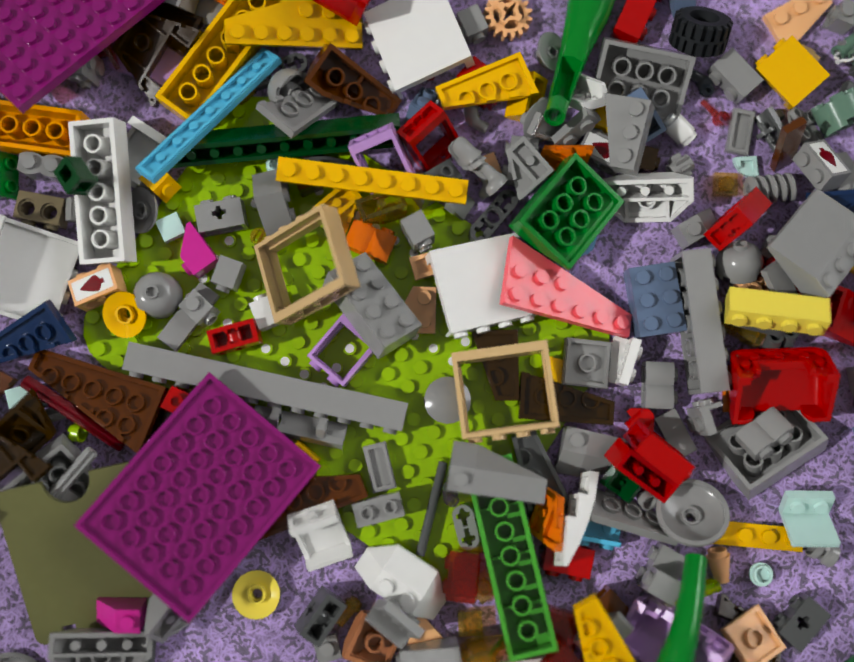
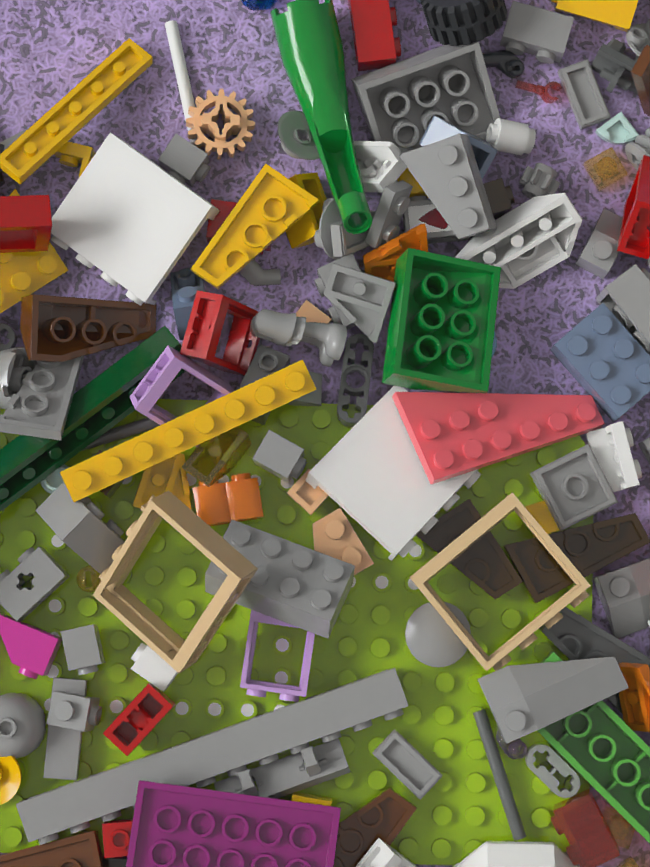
camera: 30 degrees left, 0 degrees up
(378, 509) = (438, 814): light grey brick -> none

